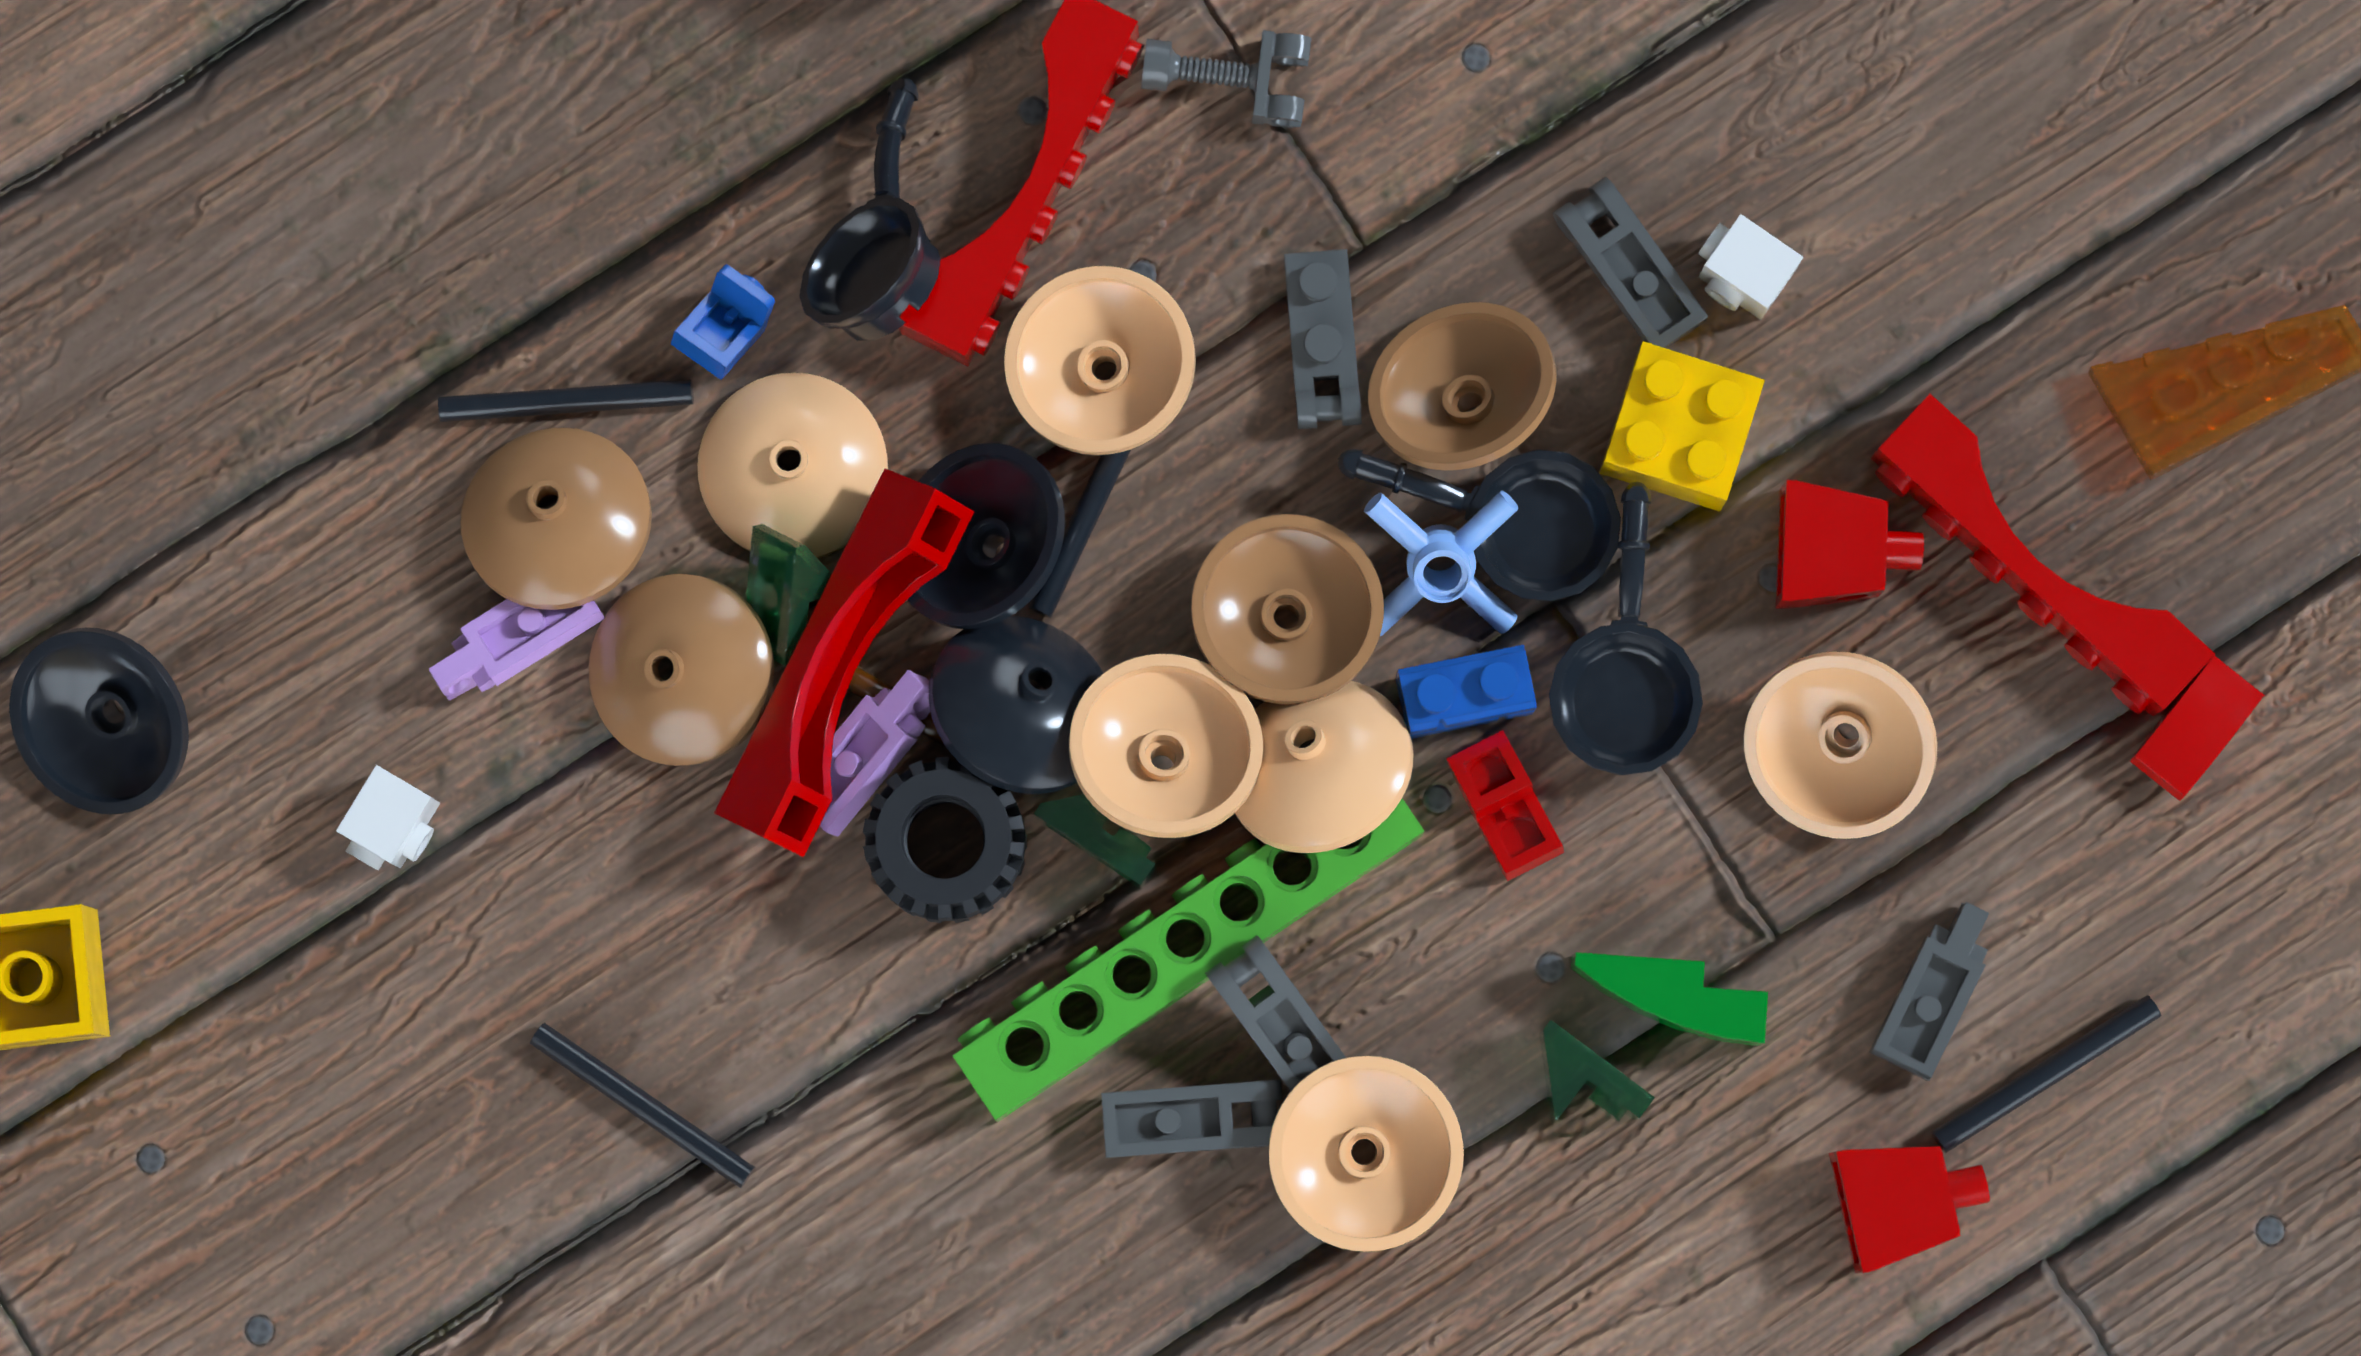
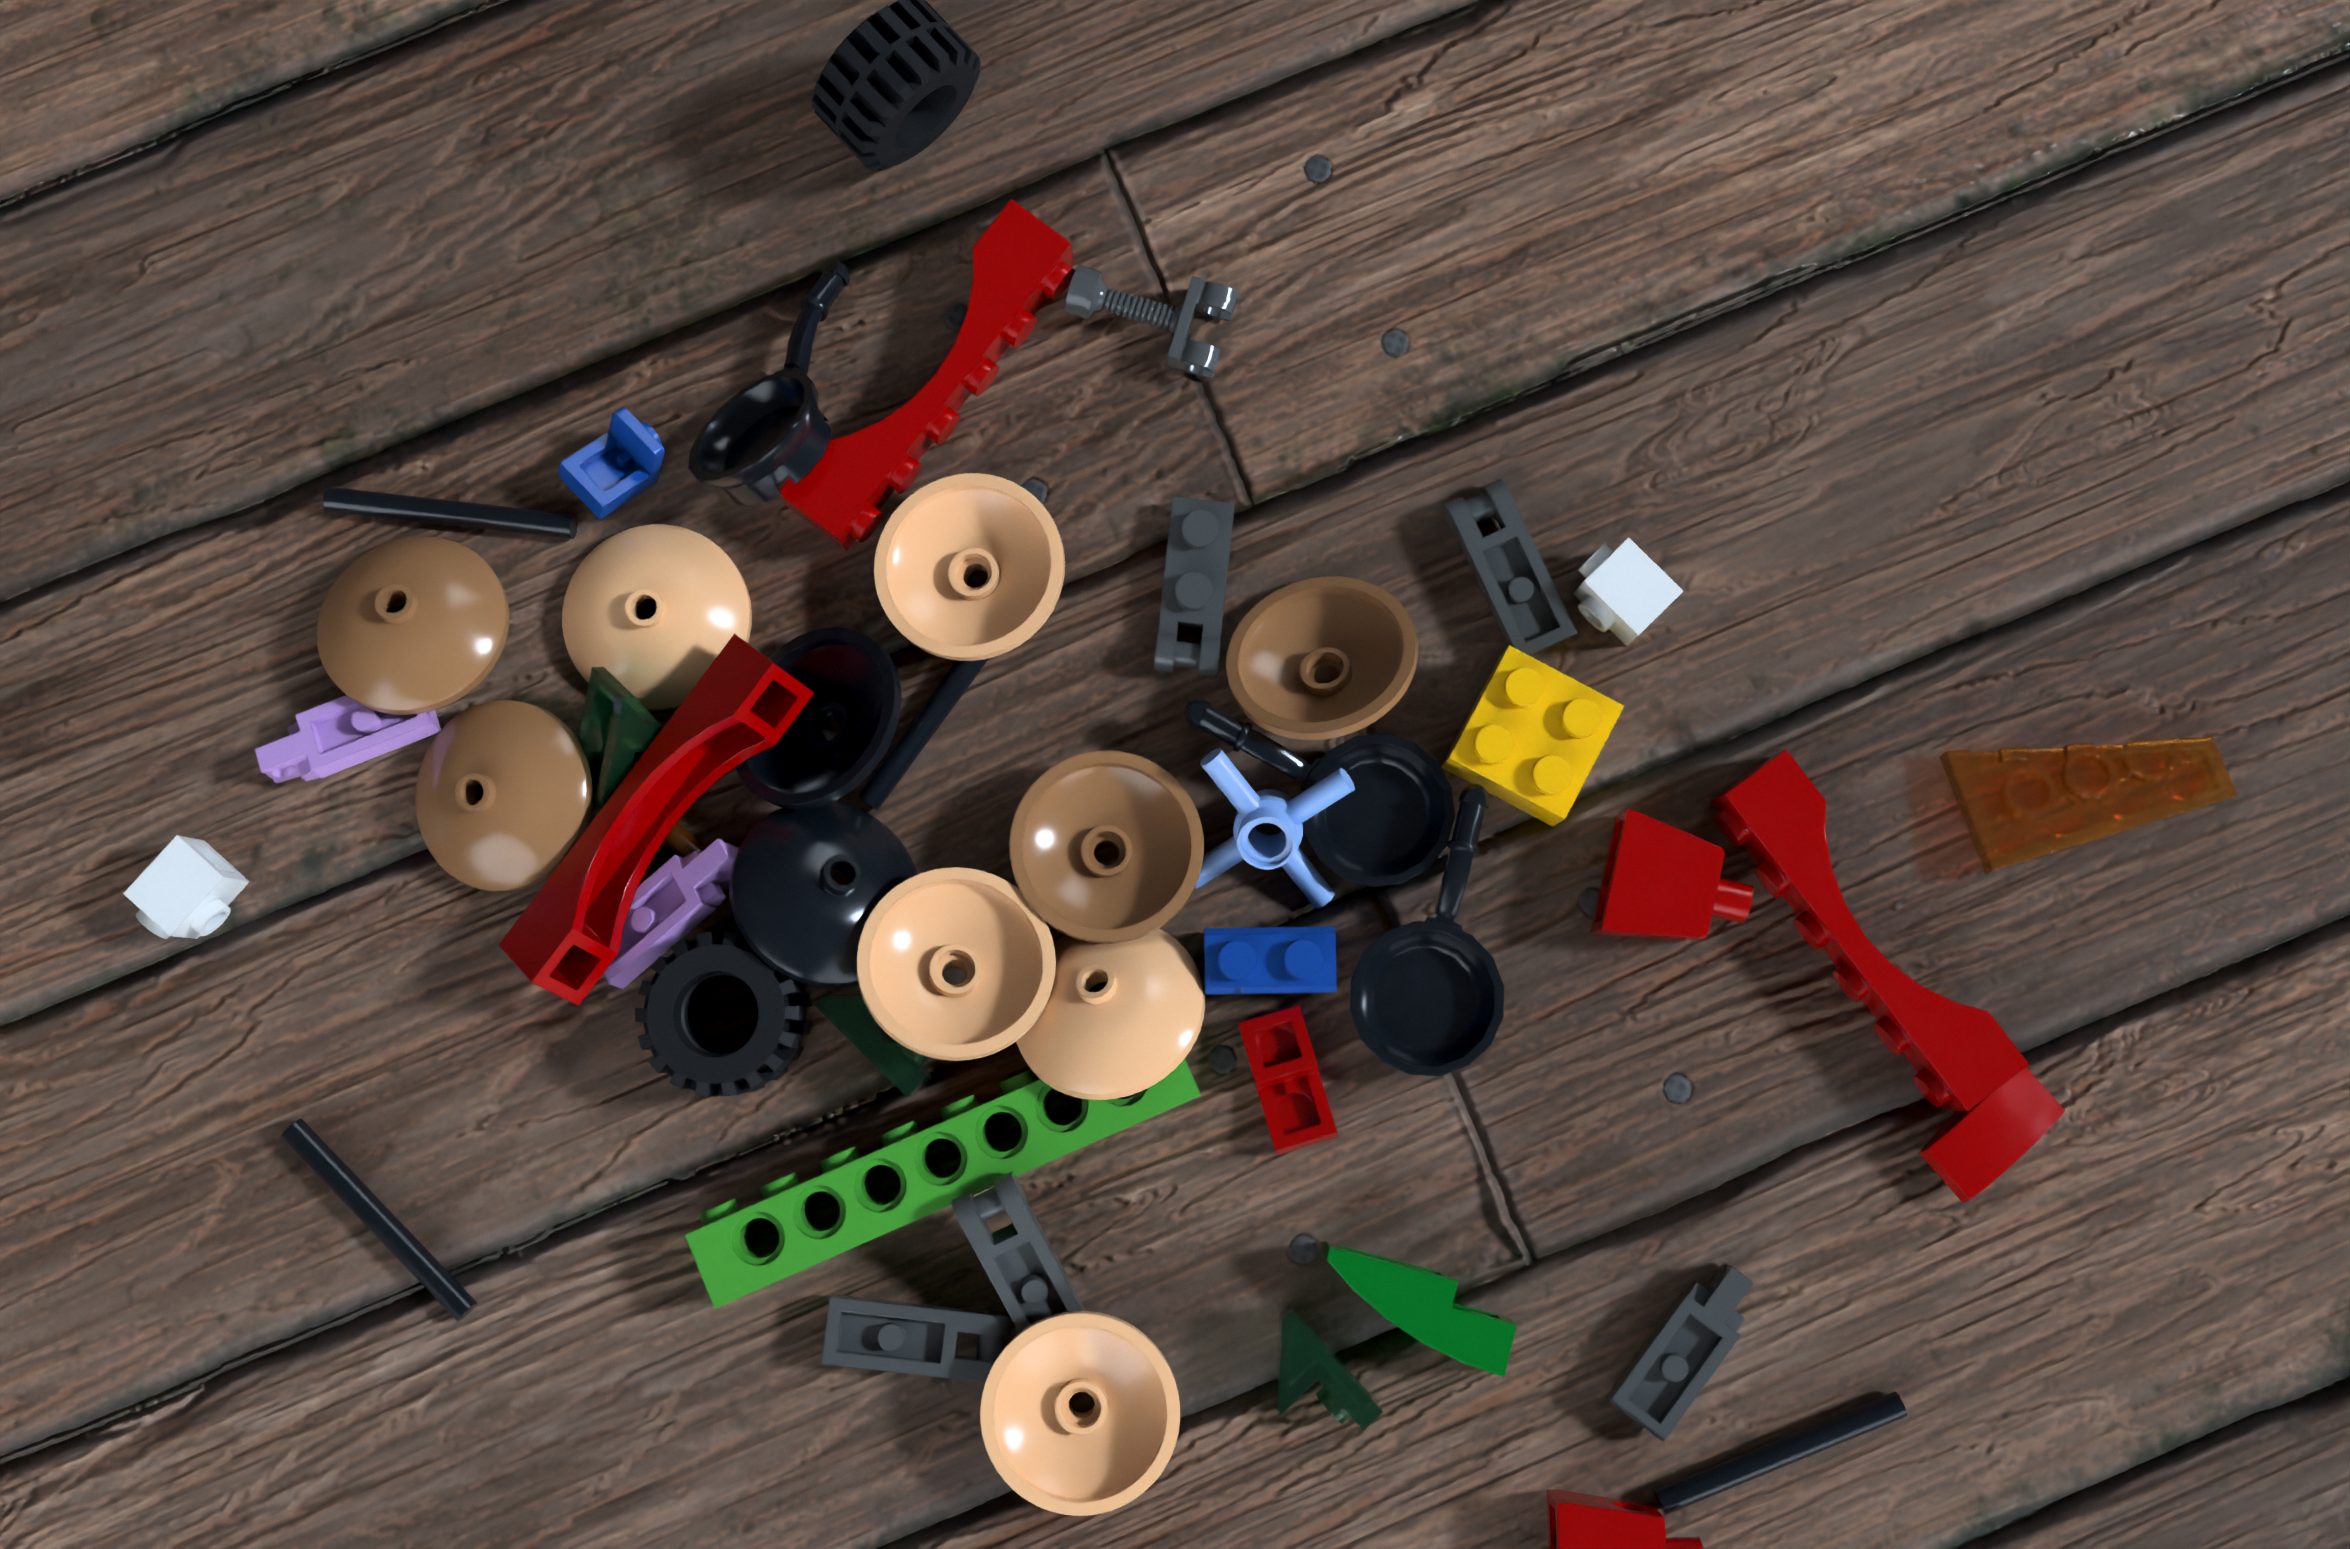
camera: 10 degrees right, 0 degrees up
(1832, 781) = (1629, 1121): light nougat dish -> none

